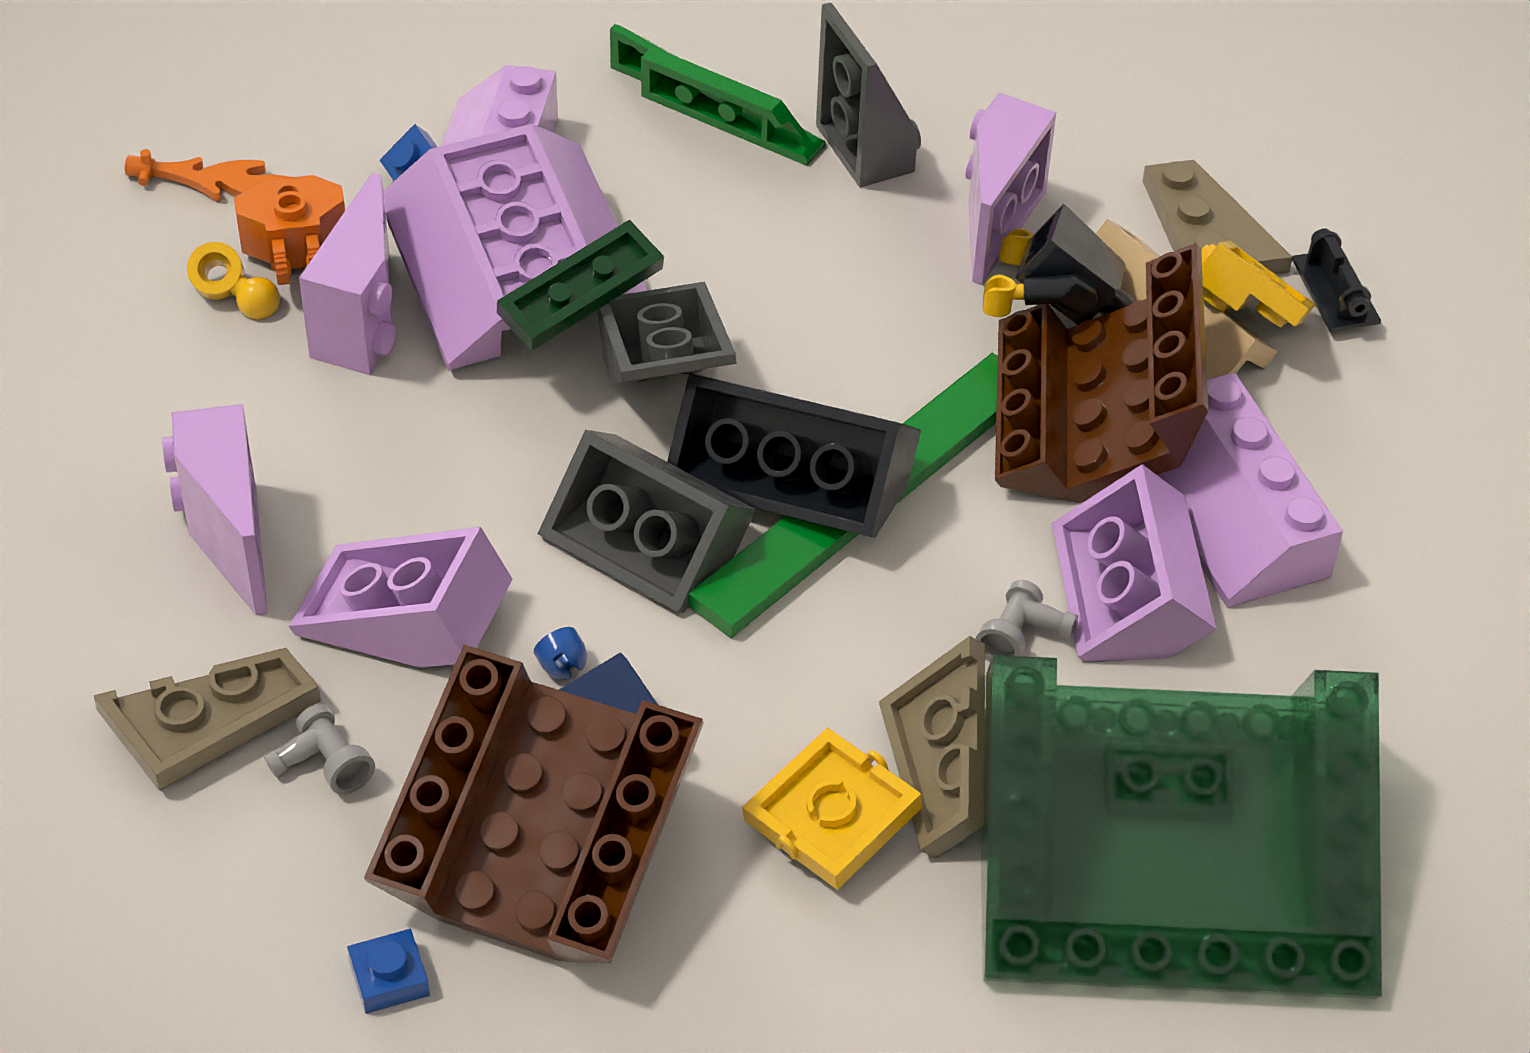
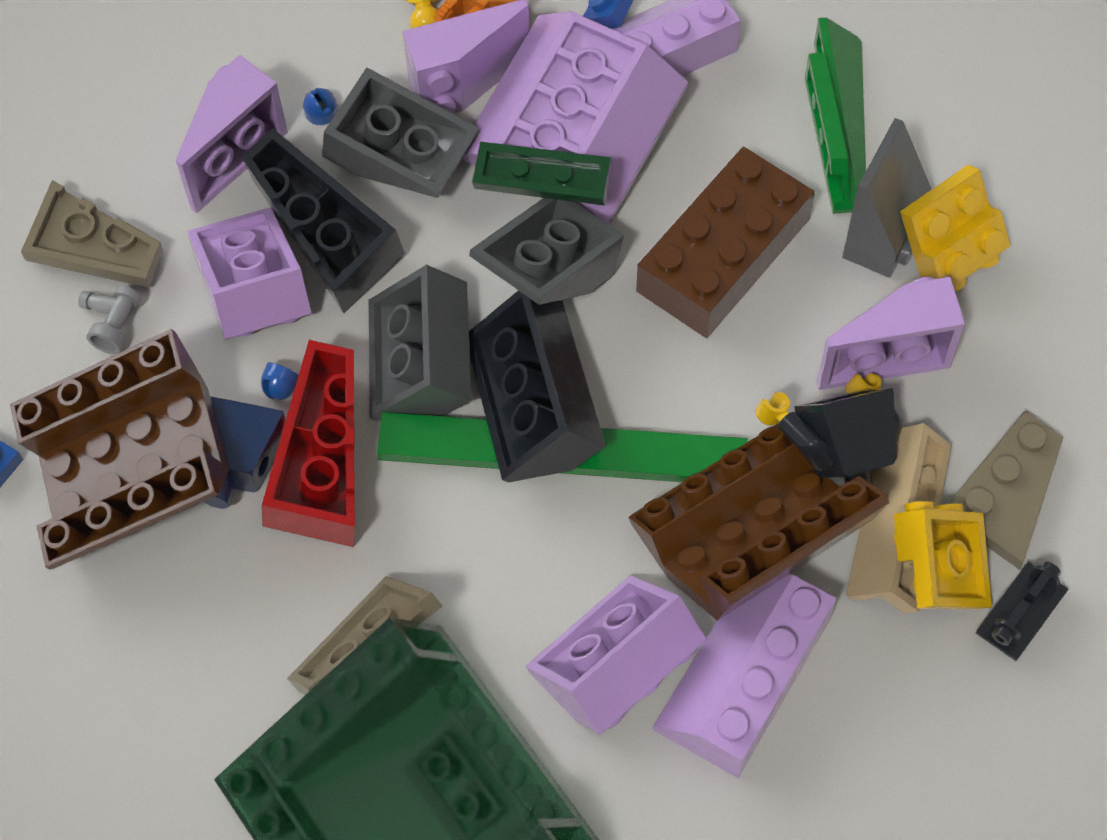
camera: 55 degrees right, 15 degrees up
(264, 434) = (312, 109): none -> blue hinge
(384, 386) = (396, 136): none -> dark grey slope
(408, 491) = (329, 224): none -> black wedge
(692, 654) = (314, 464): none -> red wedge
(772, 238) = (724, 241): none -> reddish brown brick
(832, 807) = (272, 607): yellow plate -> none
(933, 84) = (955, 228): none -> yellow plate
(1023, 606) = (530, 606): light grey piece -> none

